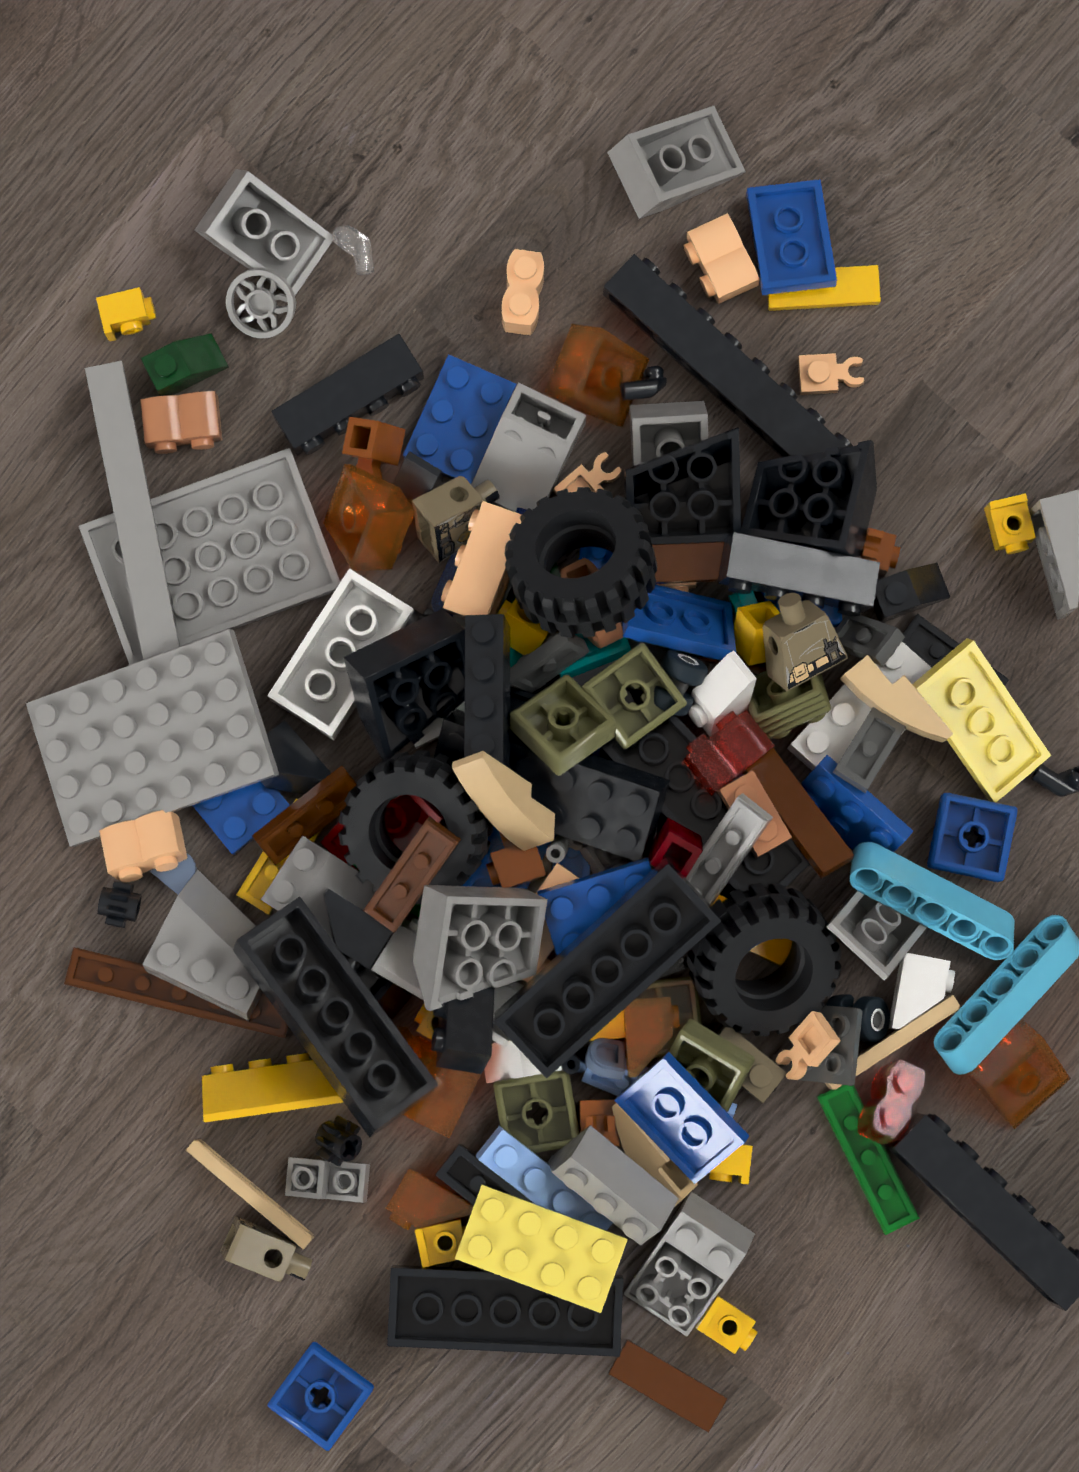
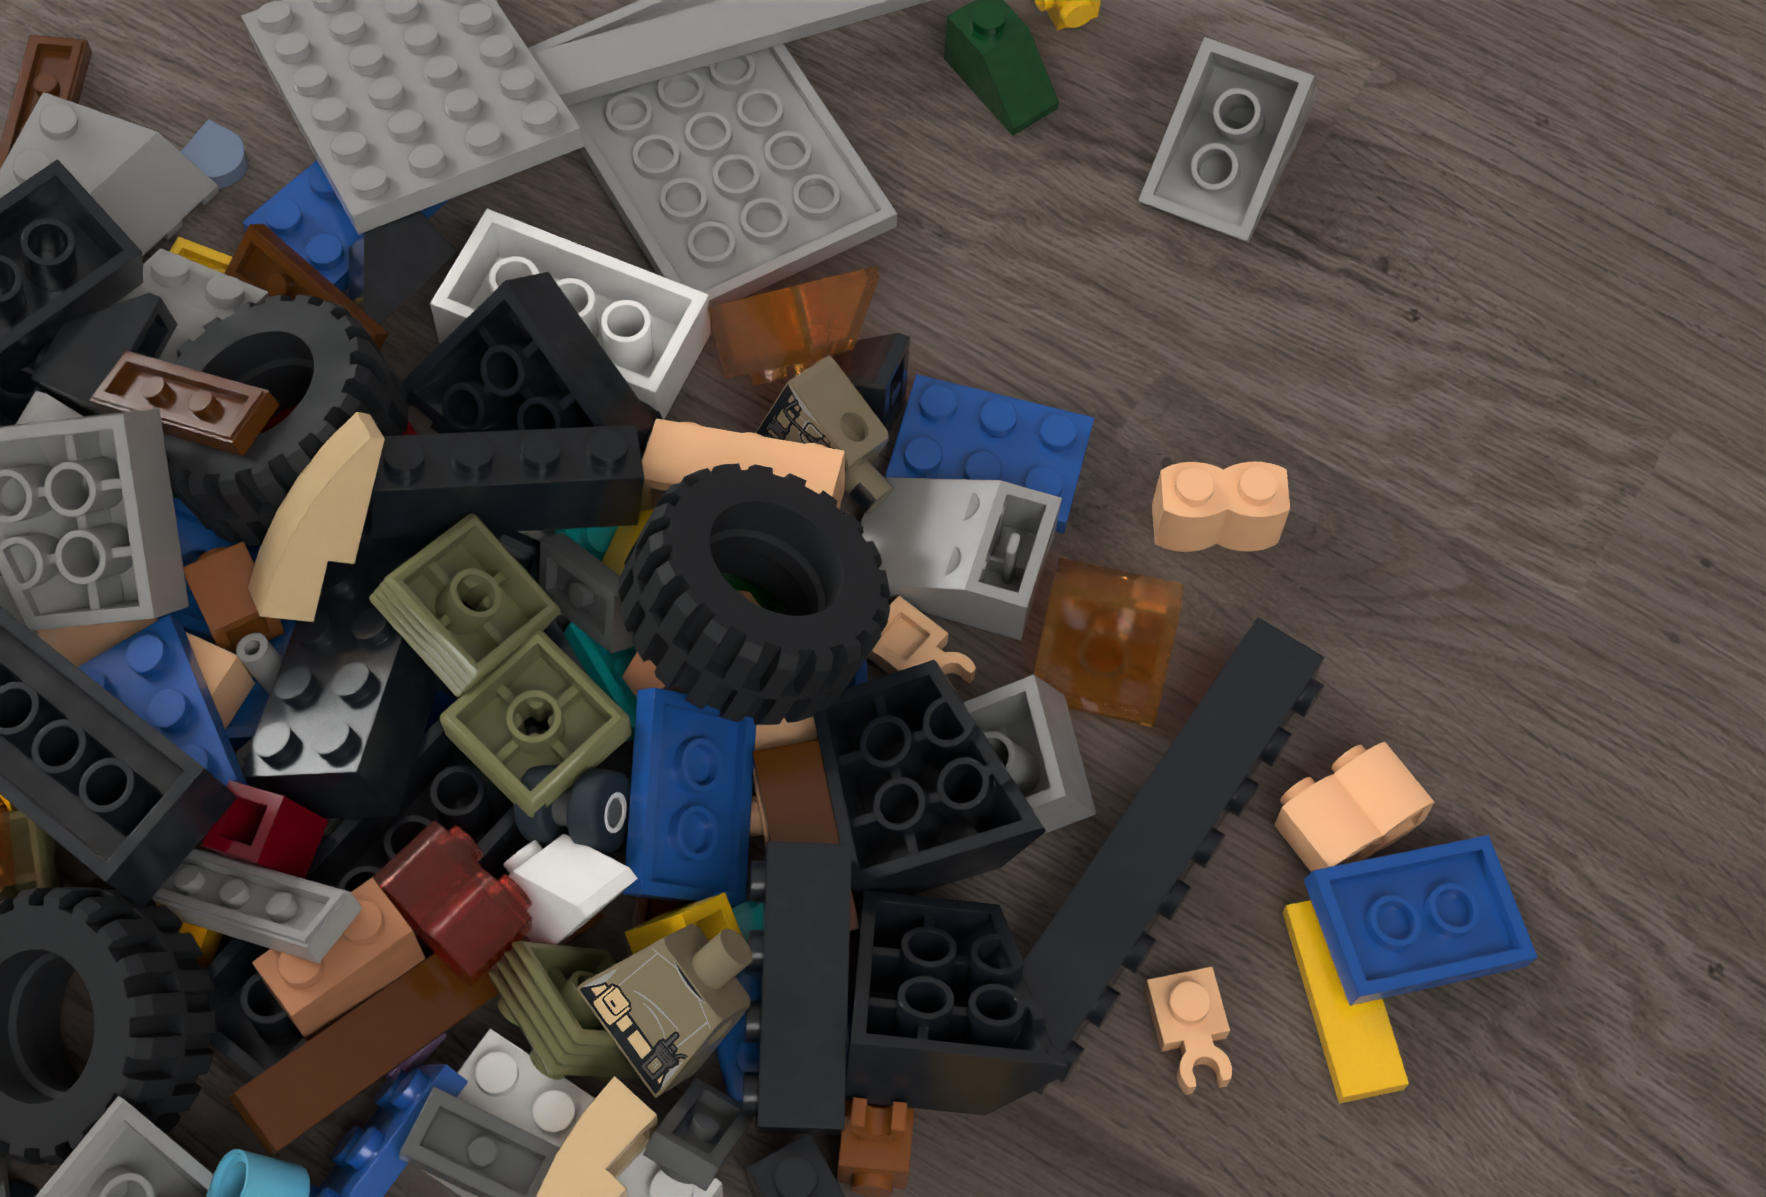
camera: 80 degrees right, 20 degrees down
(119, 904) = (152, 81): black gear -> none
(143, 845) = (243, 97): light nougat brick -> none
(181, 421) = (913, 73): nougat brick -> none
(260, 302) = (1118, 148): light grey wheel -> none
(349, 392) = (998, 285): black brick -> none
(357, 245) = (1241, 273): clear arm -> none
(373, 444) = (926, 311): dark orange brick -> none
(646, 388) = (1099, 719): black arm -> none
(675, 161) = (1505, 716): light grey slope -> none

